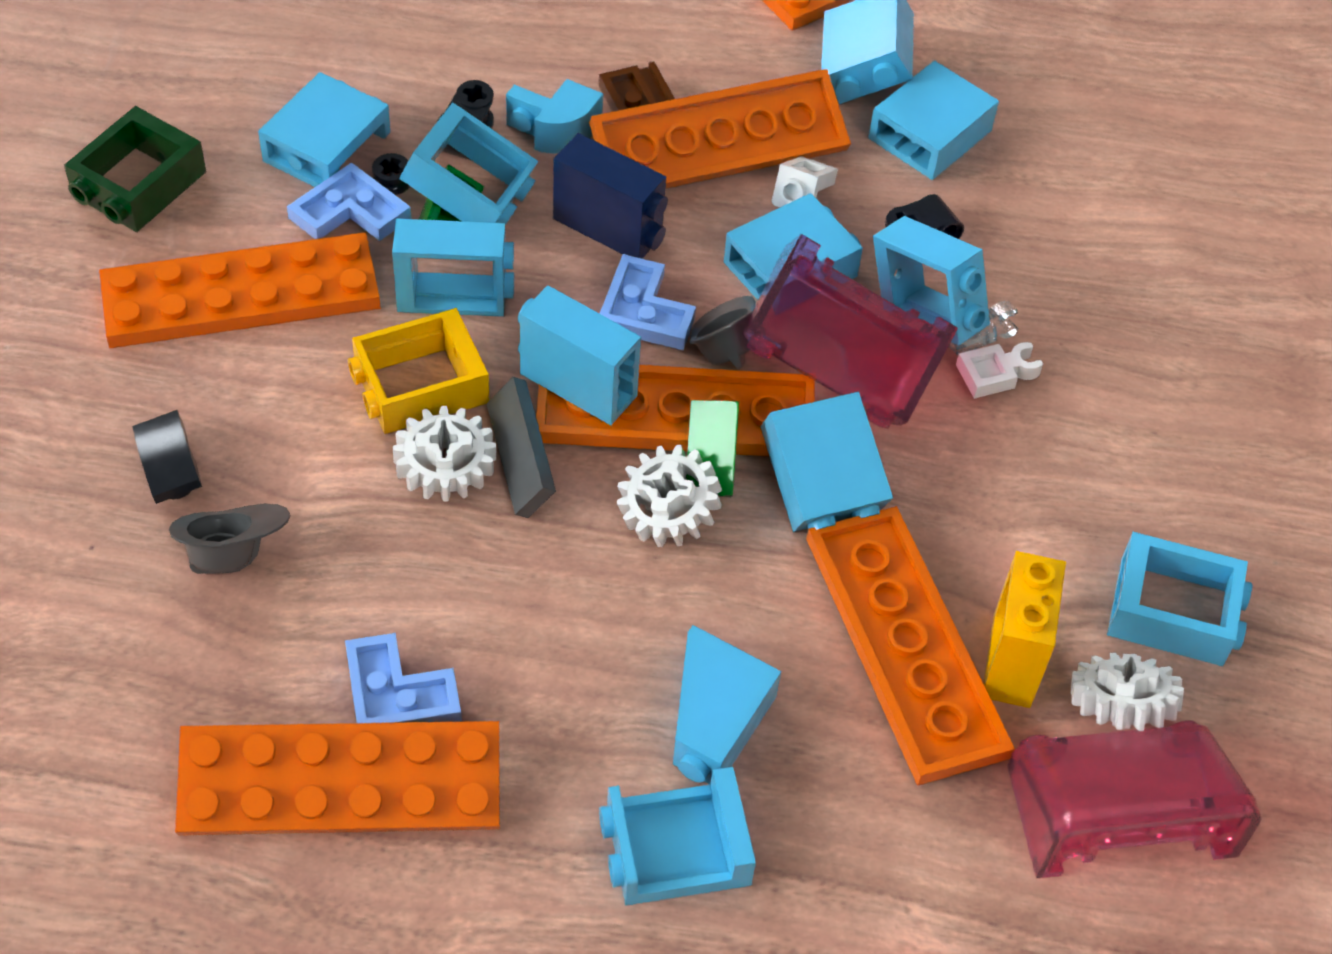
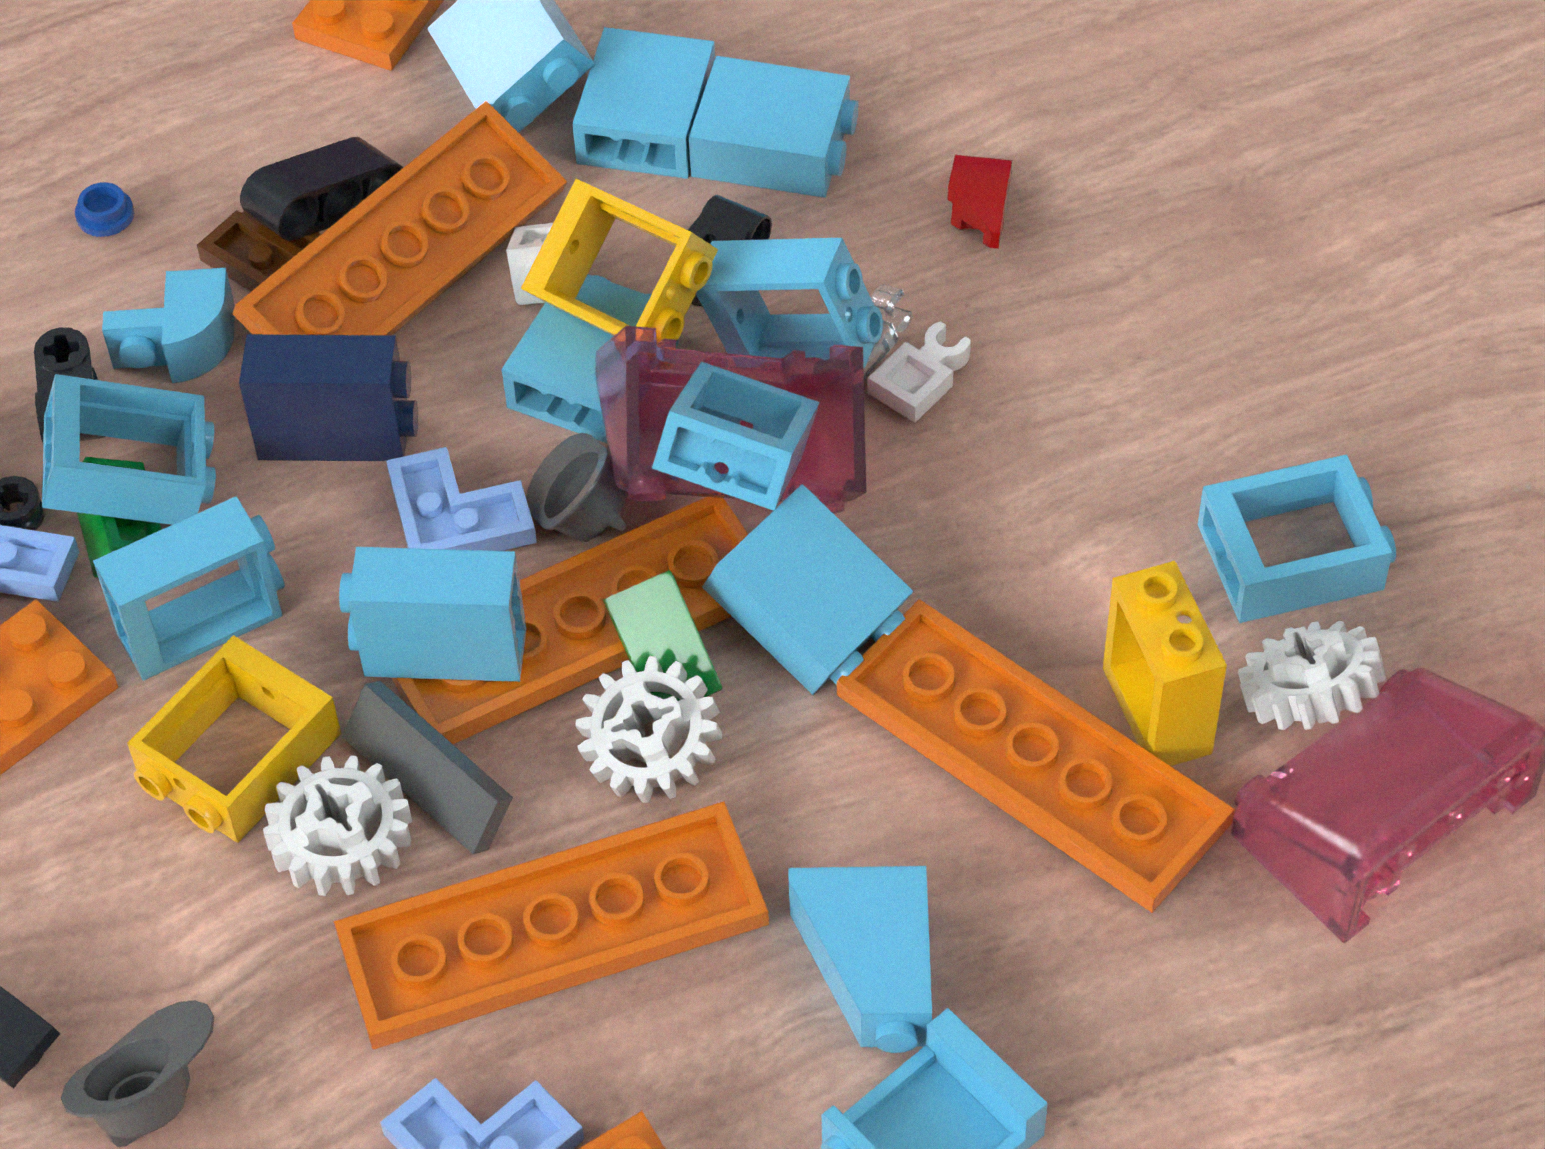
camera: 25 degrees left, 0 degrees up
(531, 581) = (550, 924): none -> orange plate
(561, 29) = (103, 210): none -> blue plate
(685, 71) = (315, 187): none -> black beam
(827, 326) = (707, 430): none -> medium azure window
(830, 165) = (585, 225): none -> yellow window
(1004, 171) = (772, 126): none -> medium azure brick
(1113, 277) = (979, 195): none -> red slope

